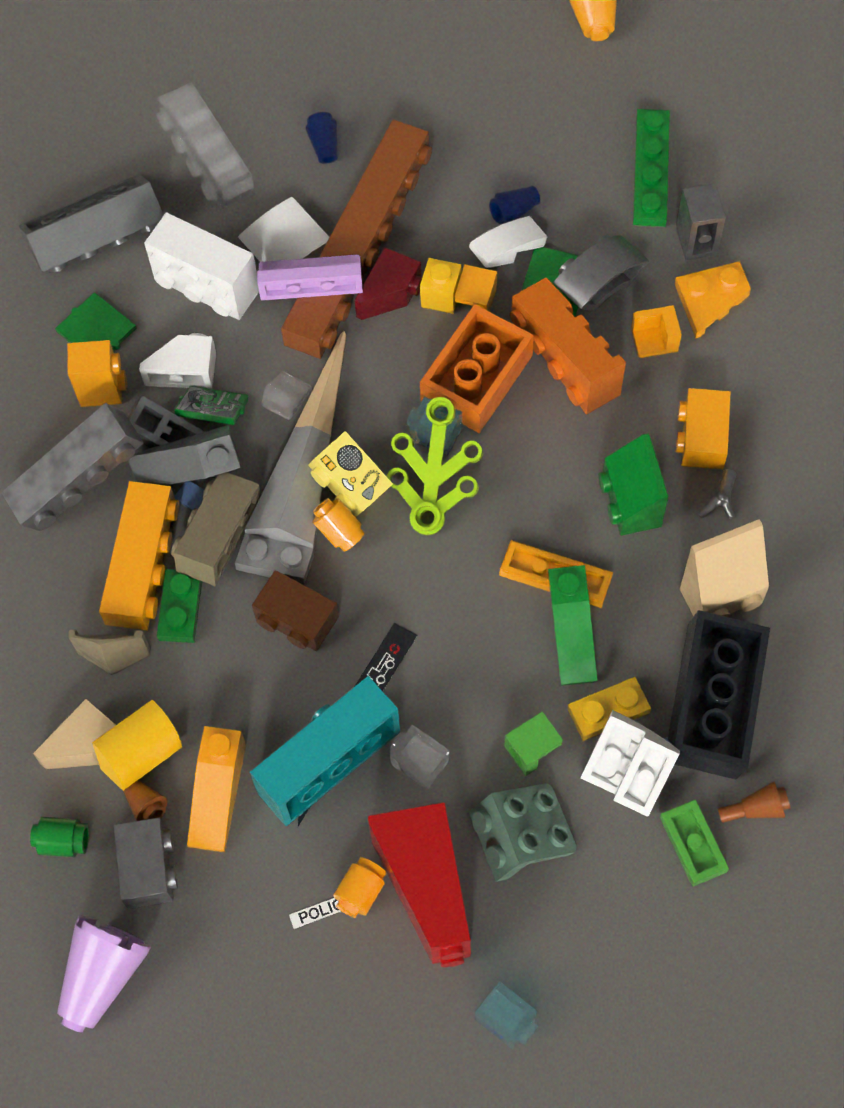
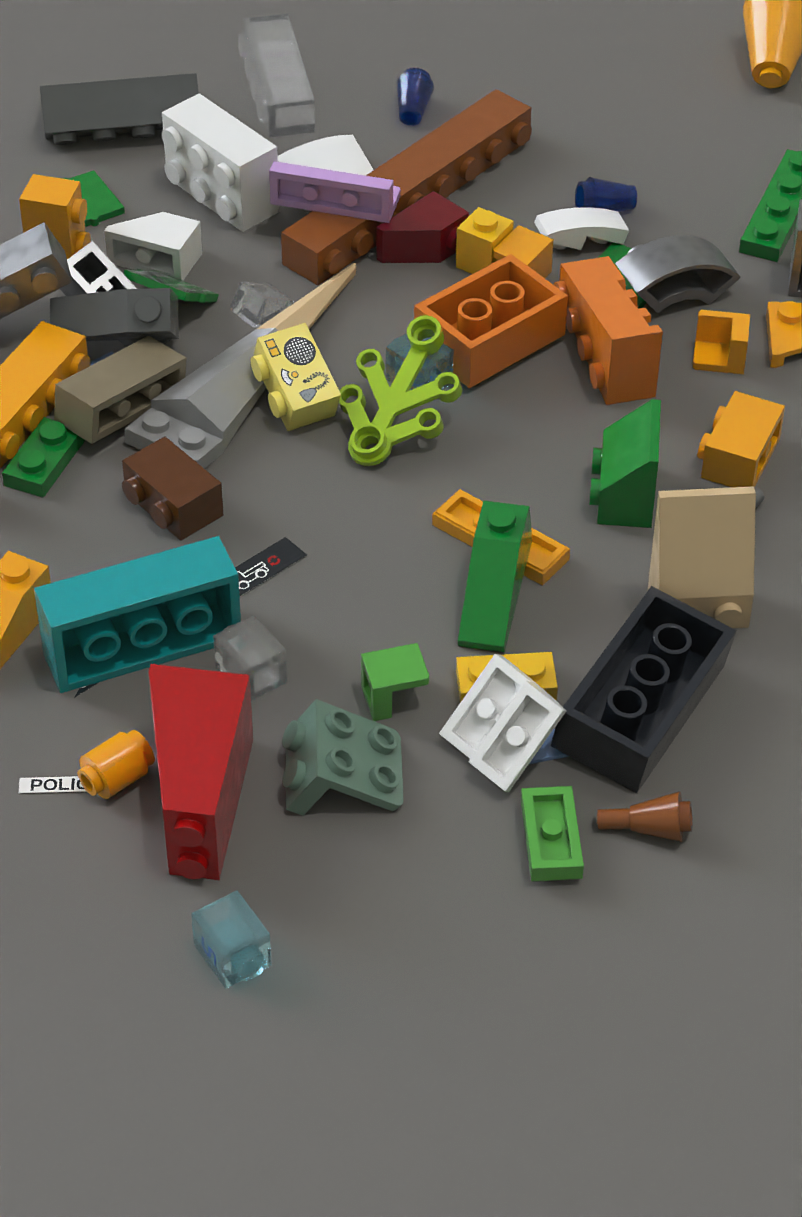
camera: 15 degrees right, 20 degrees down
(338, 524) = (260, 419): light orange brick -> none

